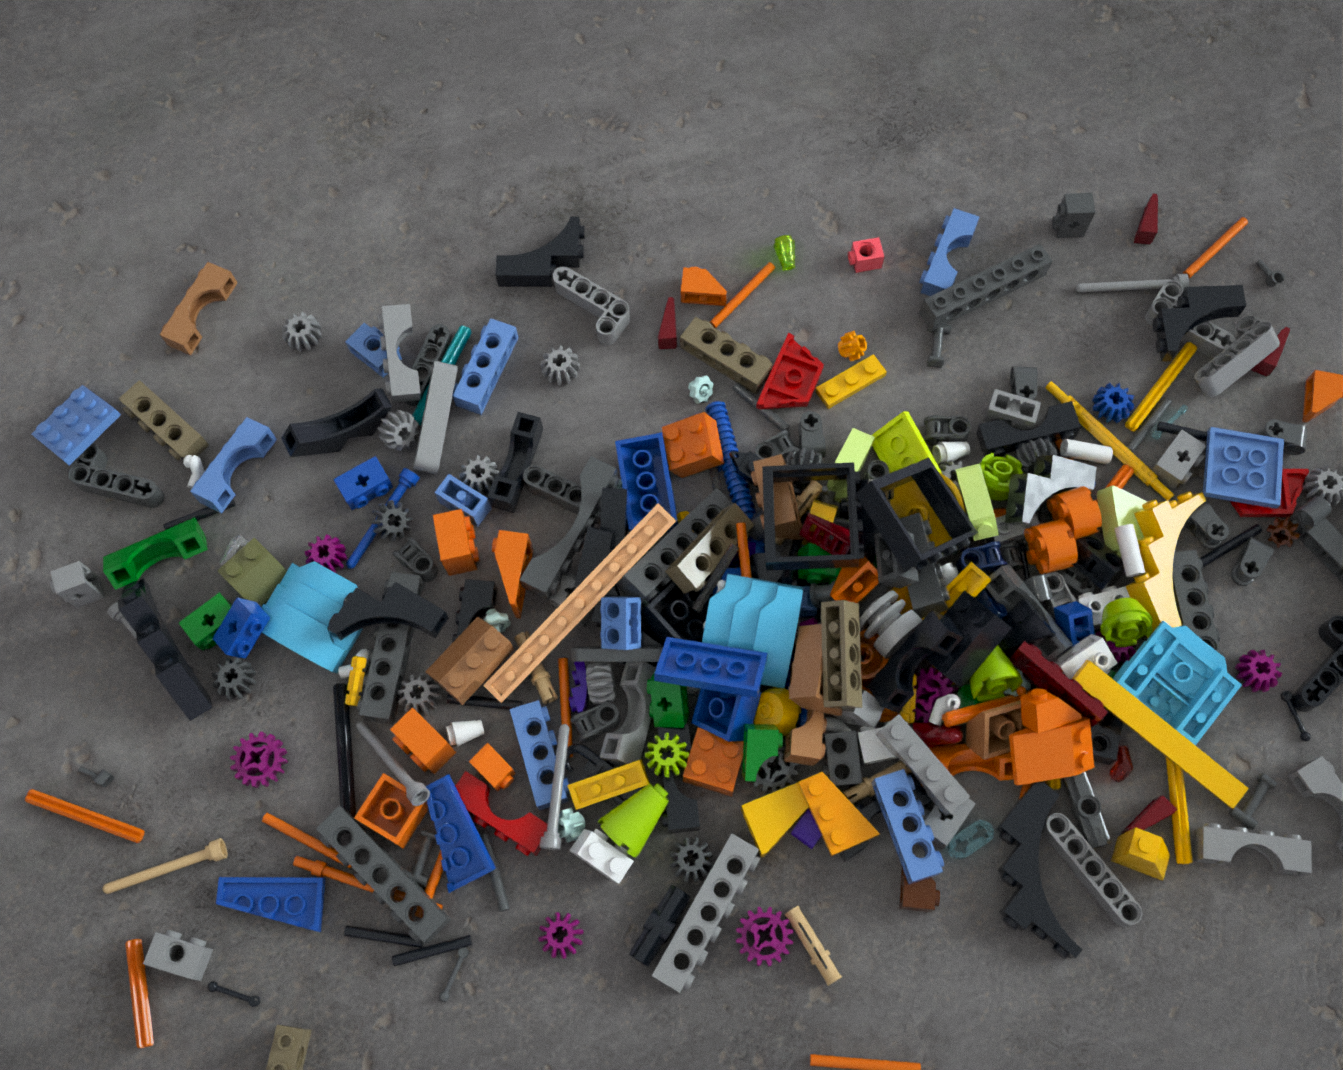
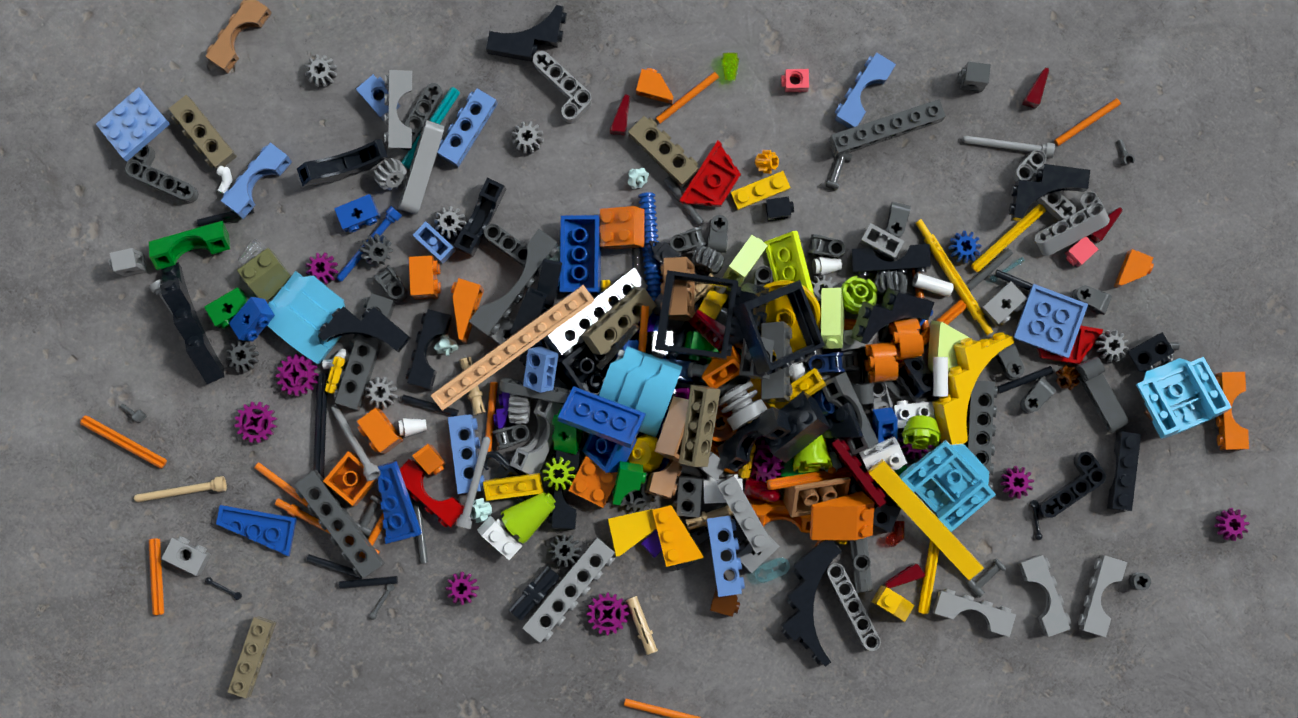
camera: 10 degrees right, 15 degrees up
(307, 690) = (293, 367): none -> magenta gear
(470, 660) = (422, 375): medium nougat slope -> none
(878, 396) = (779, 208): none -> black brick
(942, 705) = (772, 471): white arm -> none
(1045, 711) = (843, 492): orange slope -> none
(1253, 385) = (1081, 252): none -> coral brick

